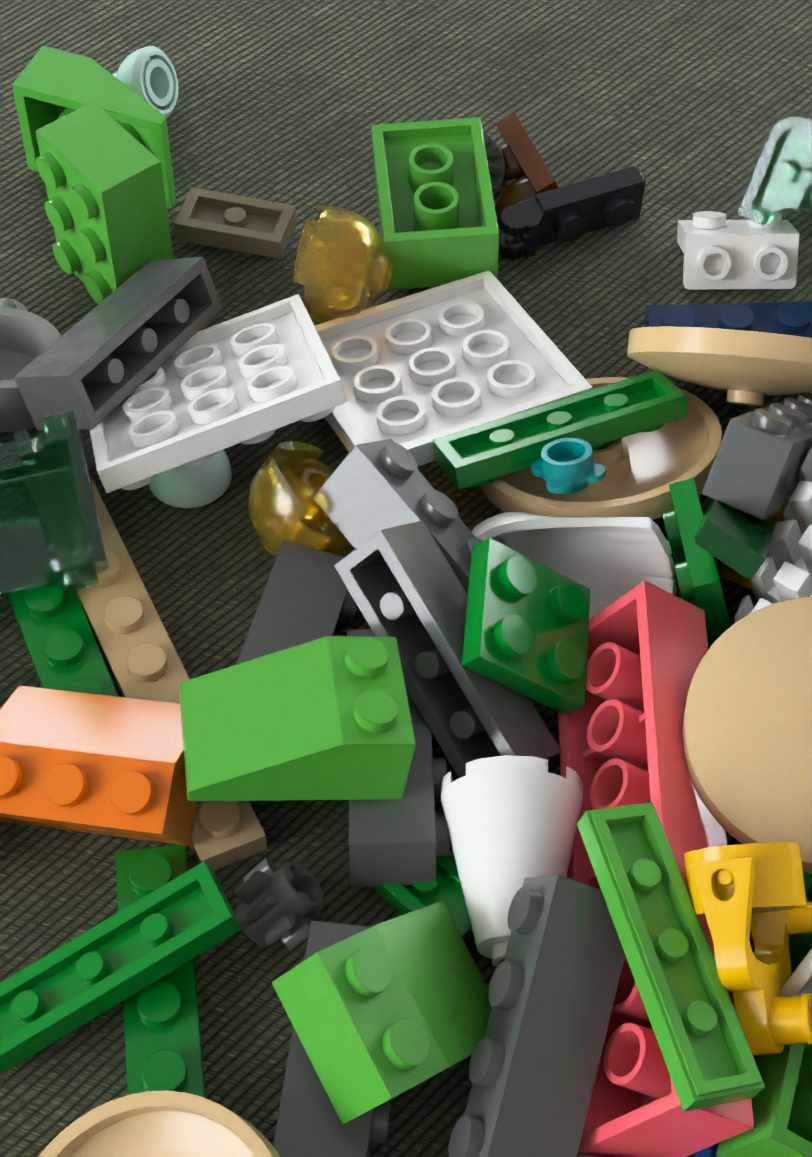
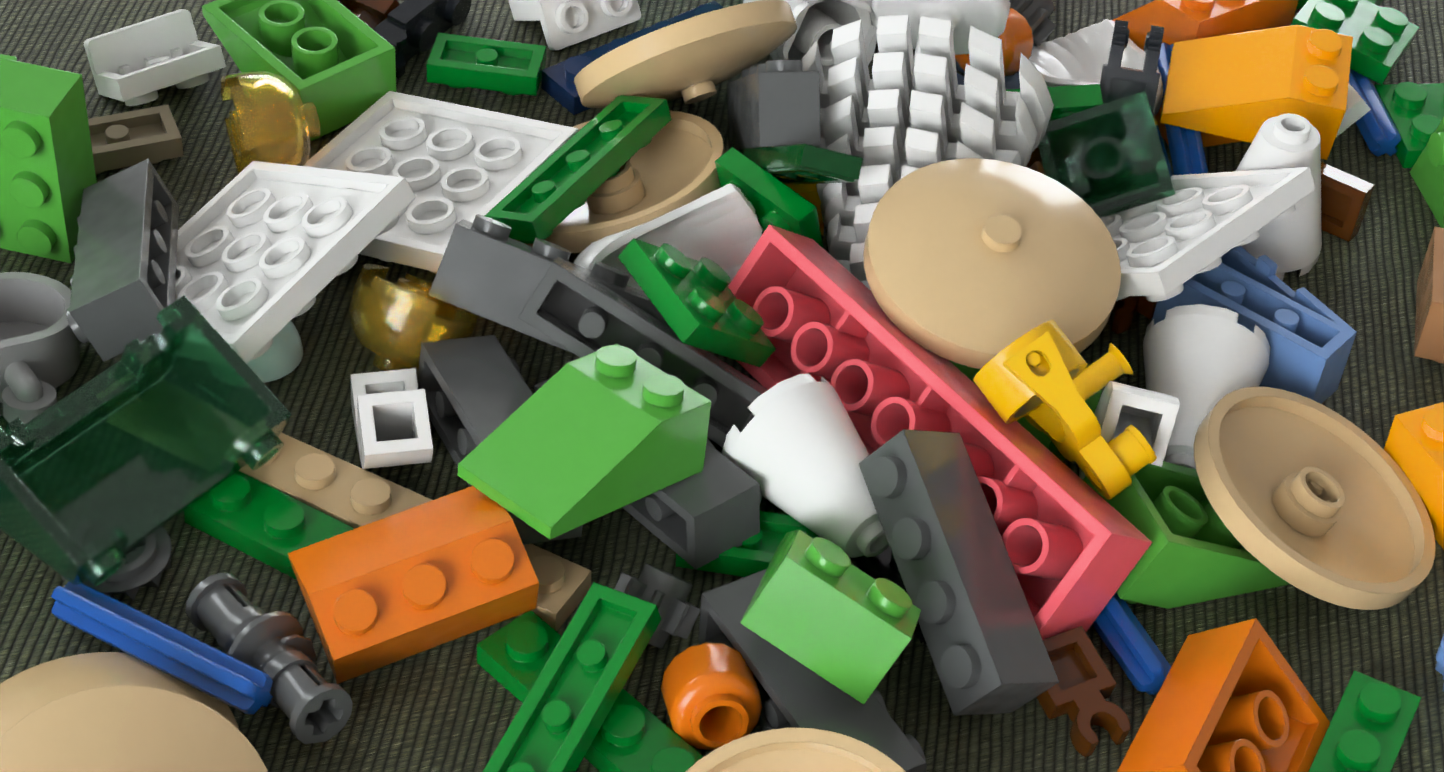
camera: 40 degrees left, 10 degrees down
(212, 608) = (390, 419): none -> white brick
(246, 1026) = (711, 695): none -> orange head
(320, 155) = (150, 57): none -> white bracket
(568, 466) = (618, 185): teal plate -> none
(602, 278) = (486, 64): none -> green plate
(669, 957) = (1020, 443): bright green tile -> none

